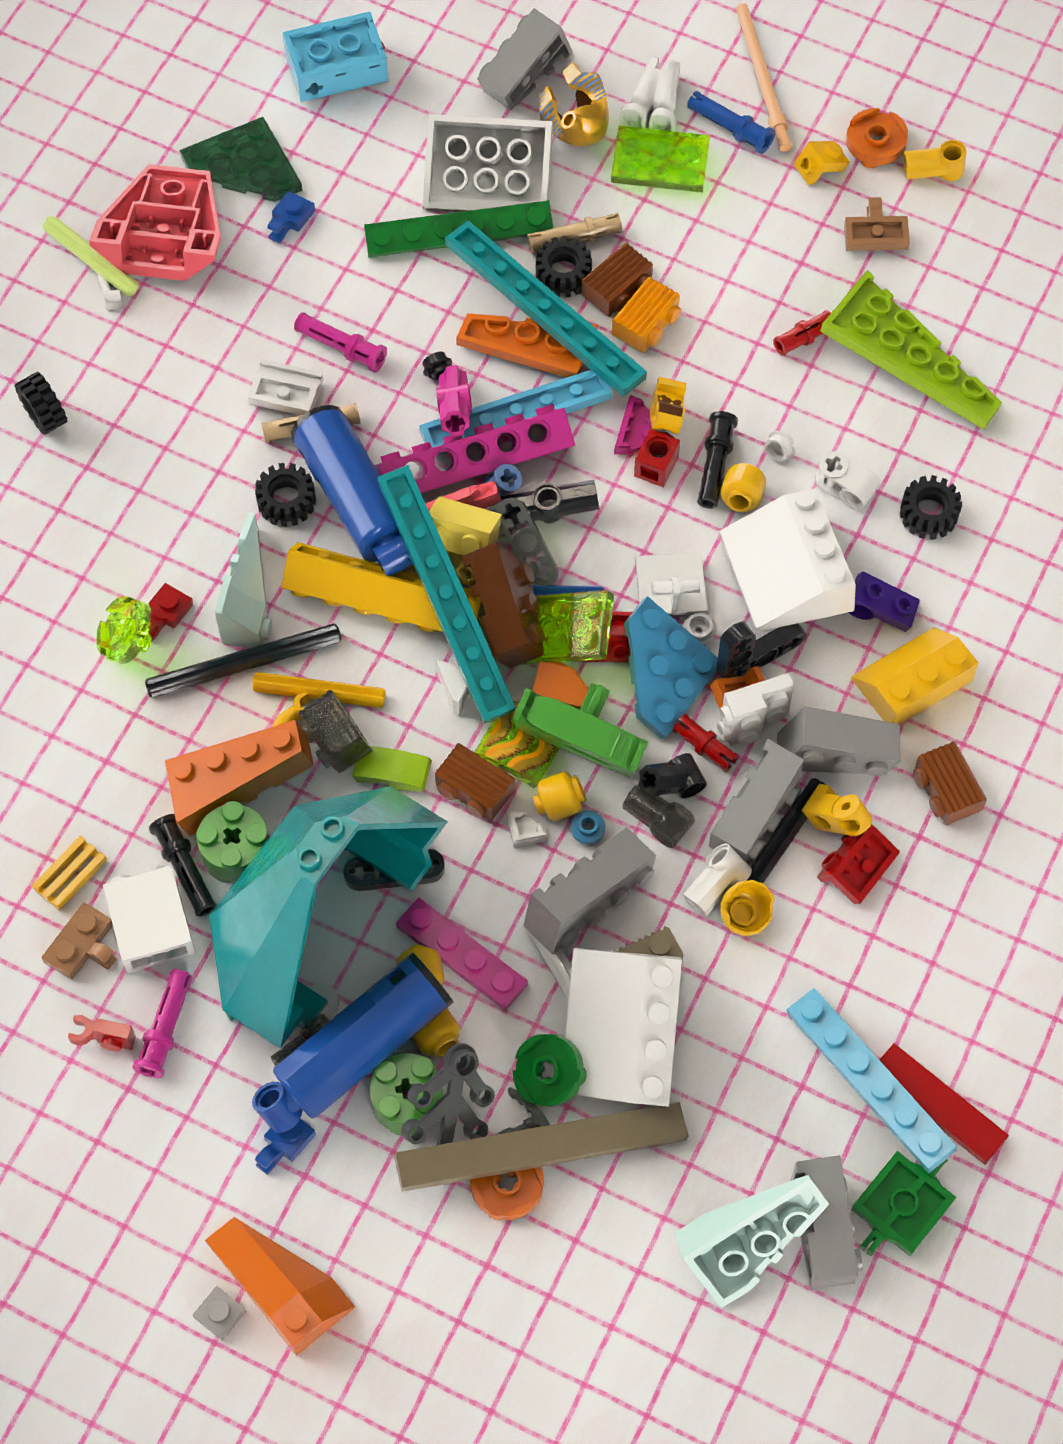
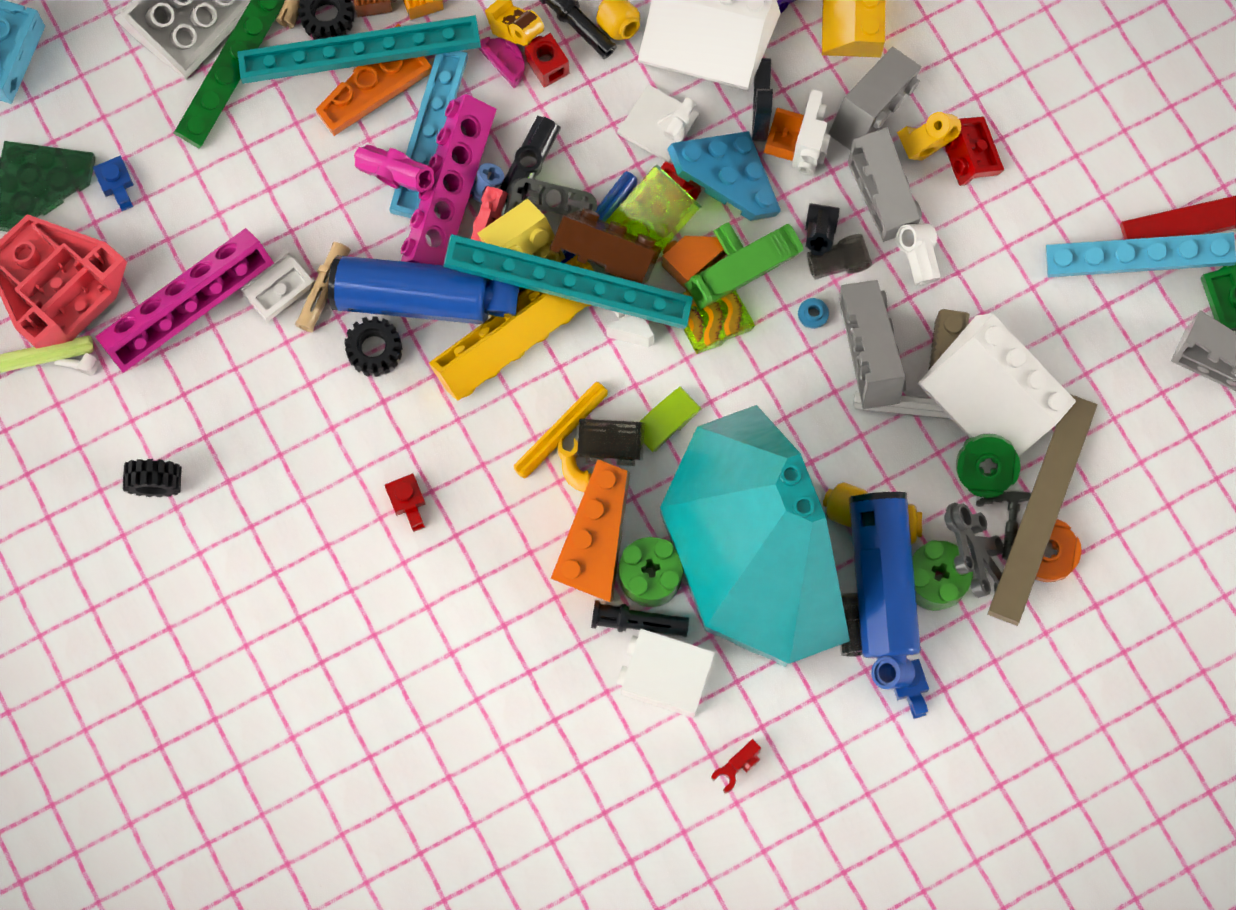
camera: 55 degrees left, 10 degrees up
(57, 867) = (575, 683): yellow tile -> none
(80, 941) = (646, 736): medium nougat plate -> none
(125, 630) = (420, 529): clear neon green plate -> none
(159, 1038) = (769, 726): dark pink pin -> none
(218, 327) = (184, 300): none -> dark pink brick
(219, 1313) = (1010, 814): light grey plate -> none
(242, 598) = (448, 433): light aqua wedge -> none
(242, 660) = (494, 470): black axle -> none
(284, 1287) = (1025, 755): orange wedge -> none
(353, 346) = (278, 211): dark pink pin -> none
(436, 364) = (343, 162): black plate -> none
(462, 954) = (860, 464): dark pink plate -> none
(474, 782) = (722, 368): dark orange brick -> none
(525, 829) = (781, 358): white tile -> none
(559, 796) = (777, 315): yellow head -> none
(704, 623) = (706, 122): white plate -> none
(705, 743) = (804, 187): red pin -> none
(741, 1239) = (1202, 425): light aqua wedge -> none
(747, 907) = (956, 247): yellow hair -> none
(783, 835) = (917, 187): black axle -> none
(949, 783) = (956, 47): dark orange brick -> none

